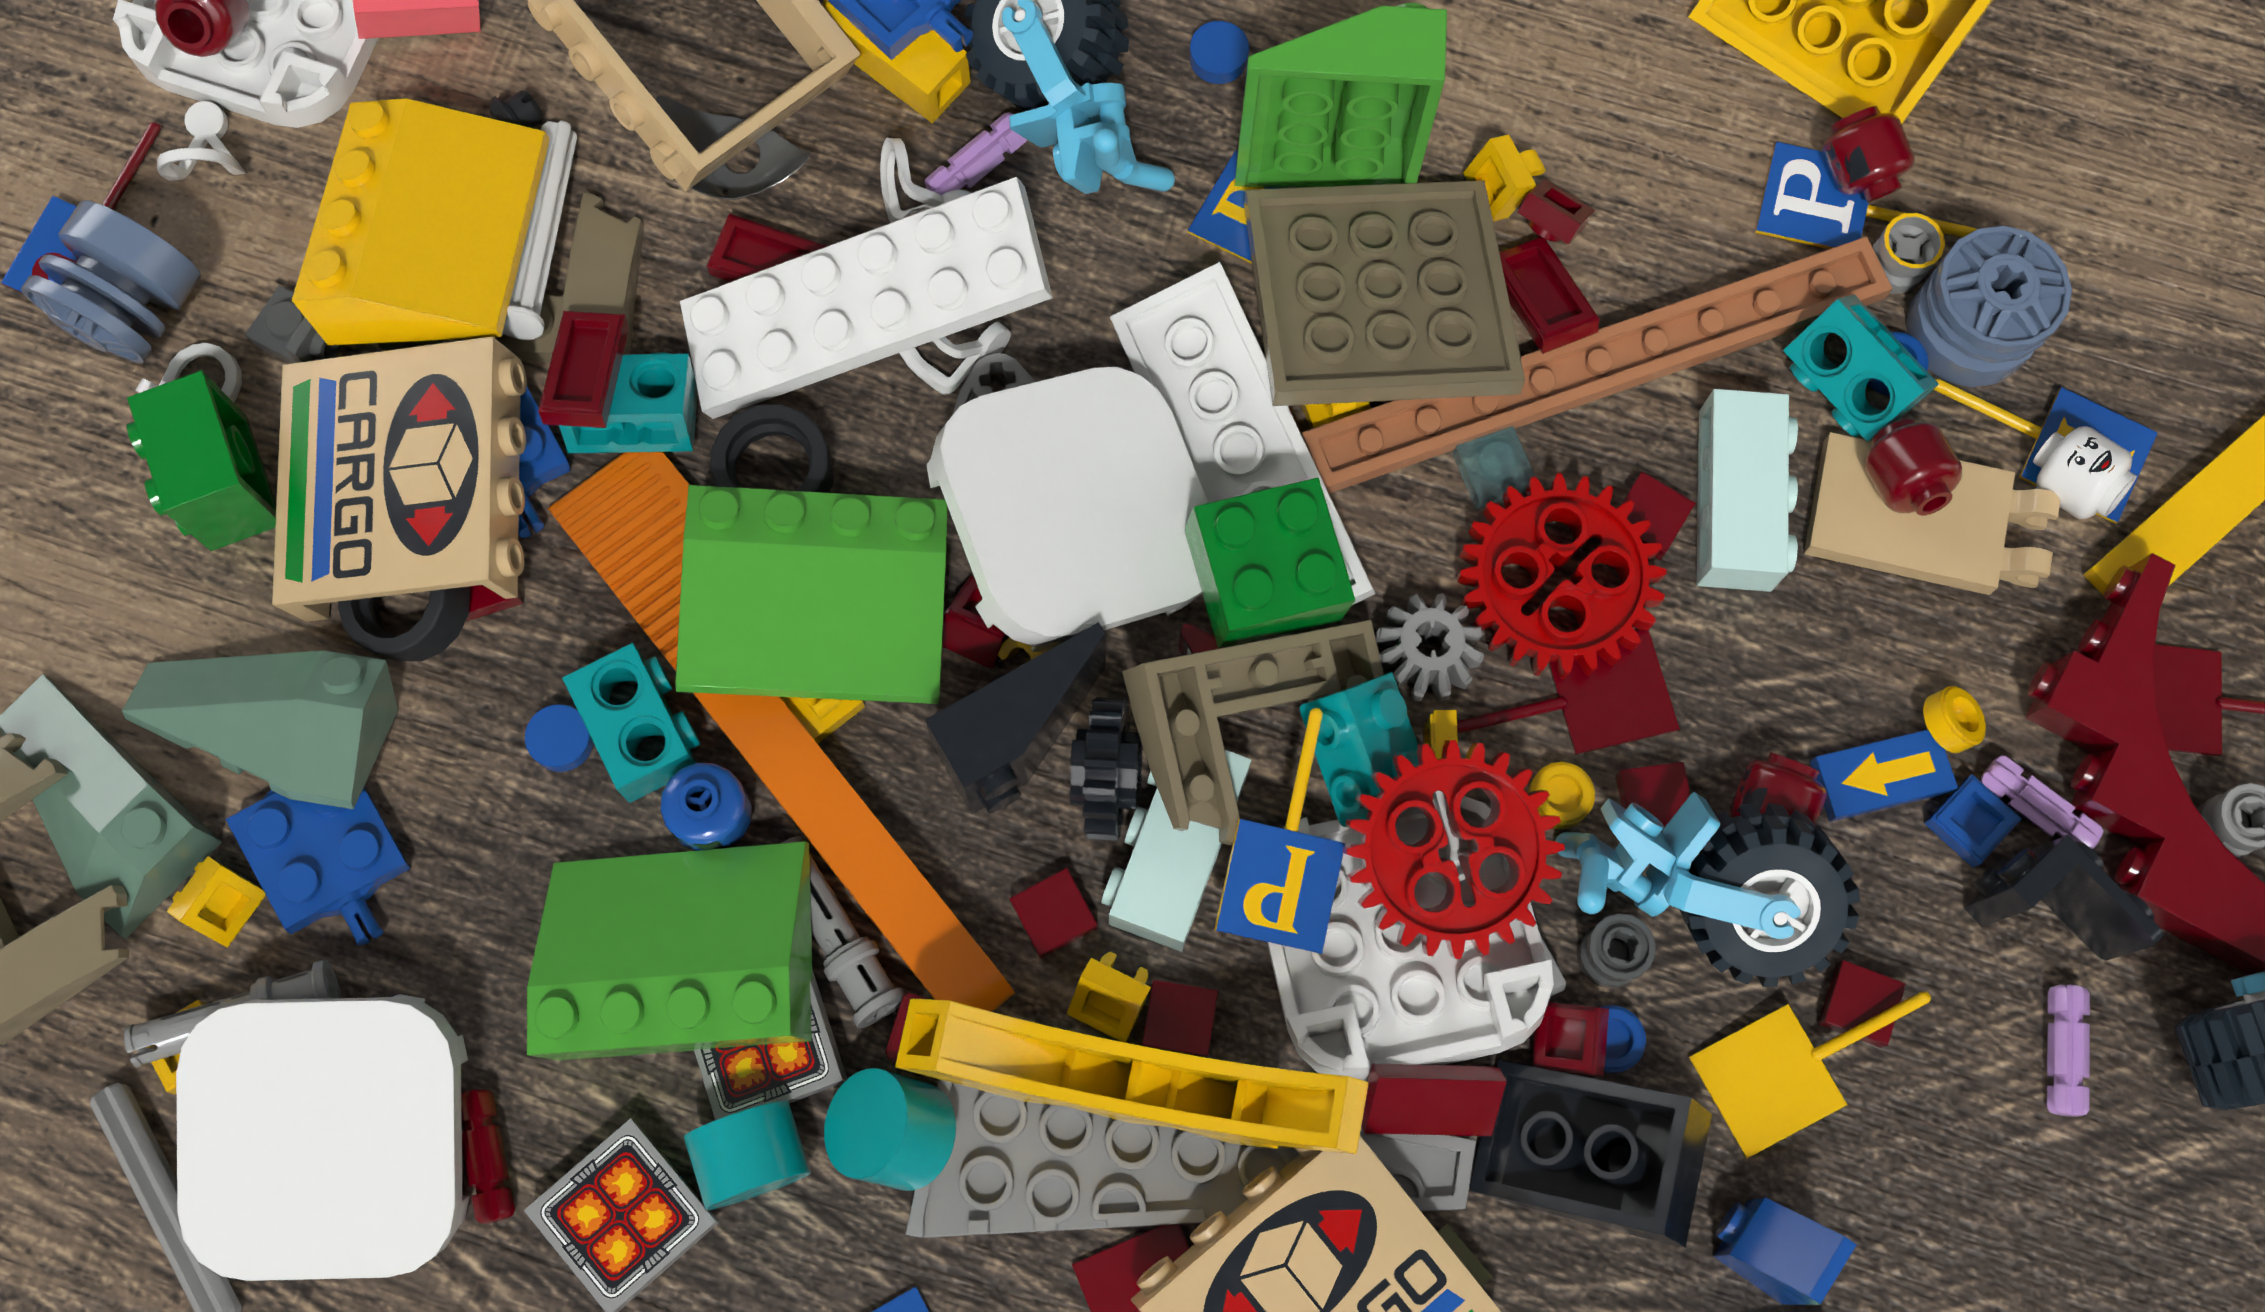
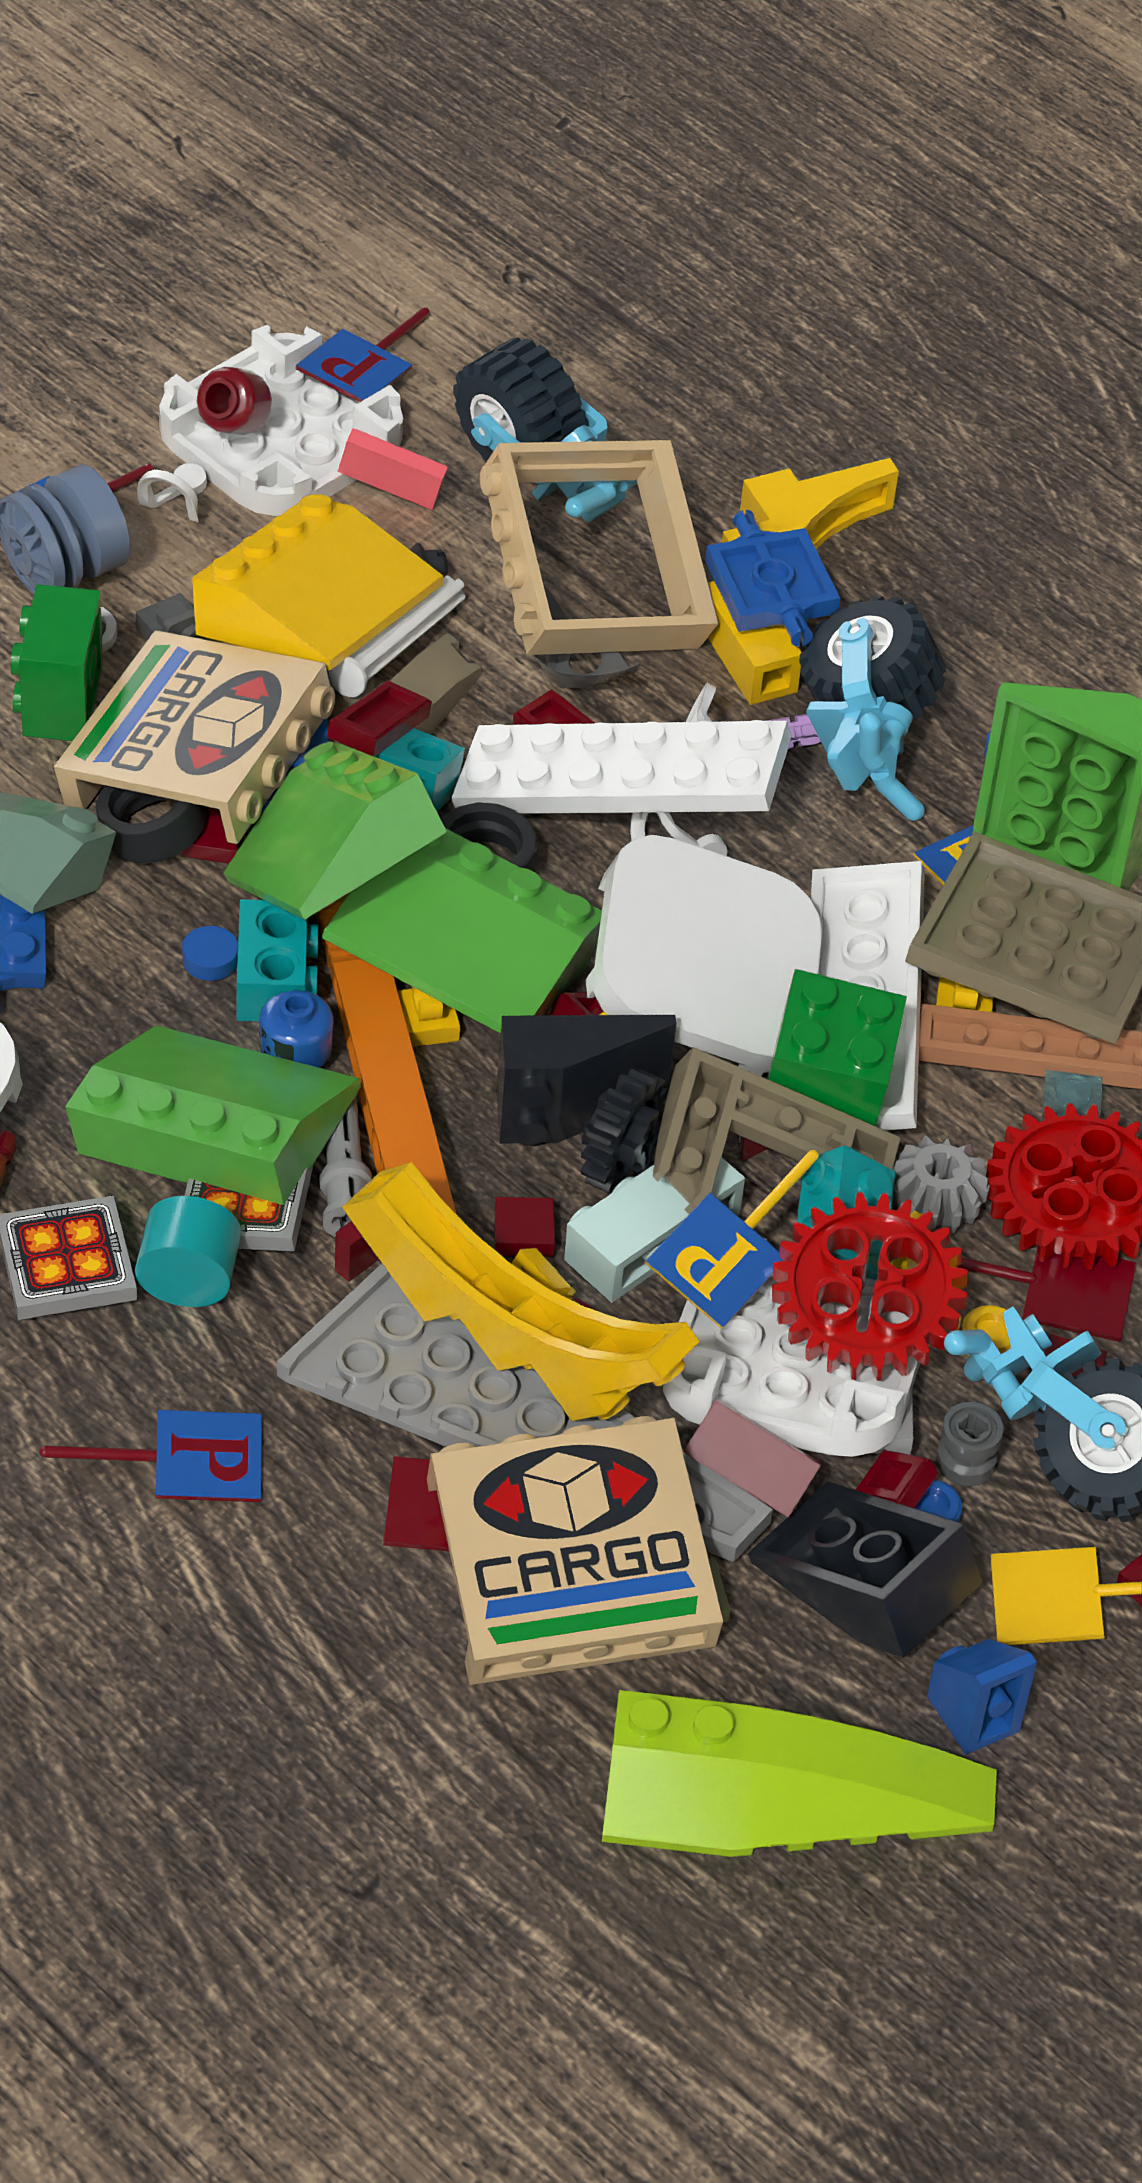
camera: 25 degrees right, 25 degrees down
(621, 570) = (333, 829): none -> bright green slope
(889, 1130) = (308, 1282): teal piece -> none

